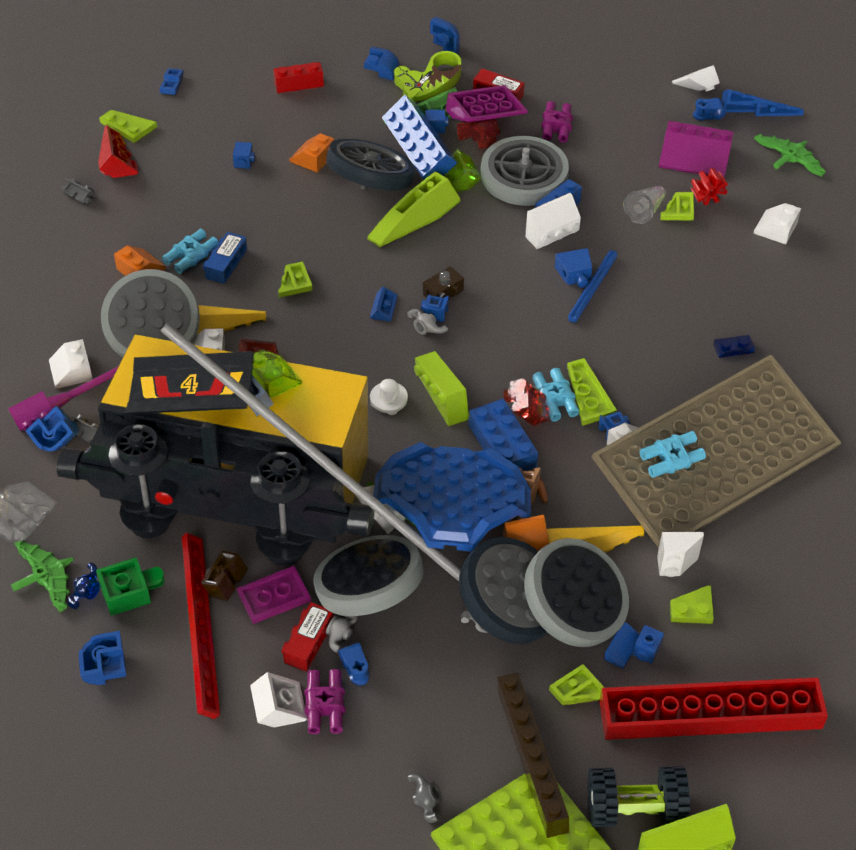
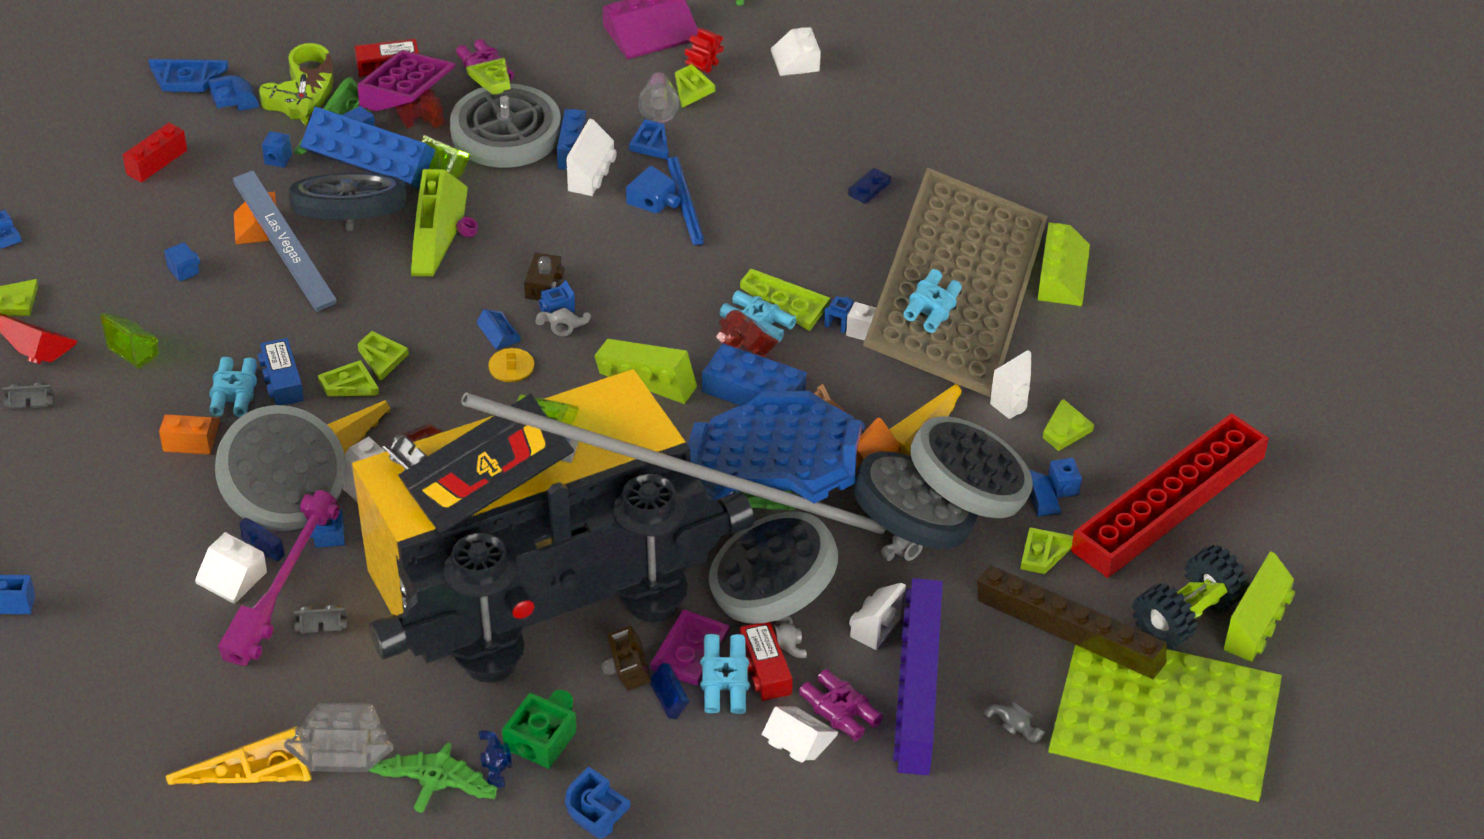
camera: 40 degrees left, 5 degrees down
(53, 430) = (293, 638): blue brick -> none
(103, 352) = (261, 539): none -> clear blue plate
(160, 345) = (401, 452): none -> hinge
(163, 186) = (129, 340): none -> clear neon green slope
(200, 627) = (656, 722): red plate -> none
(231, 610) = (669, 691): none -> clear blue plate
(258, 286) = (348, 381): none -> lime wing
(268, 617) = (713, 678): none -> medium azure pin
(306, 174) = (284, 241): none -> sand blue tile
(355, 664) = (831, 653): blue piece -> none
(366, 35) = (186, 75): none -> blue wing
(367, 334) = (511, 365): none -> yellow piece
(369, 112) = (276, 149): none -> blue brick
(388, 718) = (919, 677): none -> dark purple brick
(410, 657) = (878, 615): none -> white slope
(434, 223) = (467, 227): none -> magenta plate
(445, 34) = (277, 31): blue brick -> none
(544, 131) = (491, 75): none -> lime wing
(612, 230) = (650, 140): none -> blue wing
(815, 486) = (1064, 266): none -> lime slope

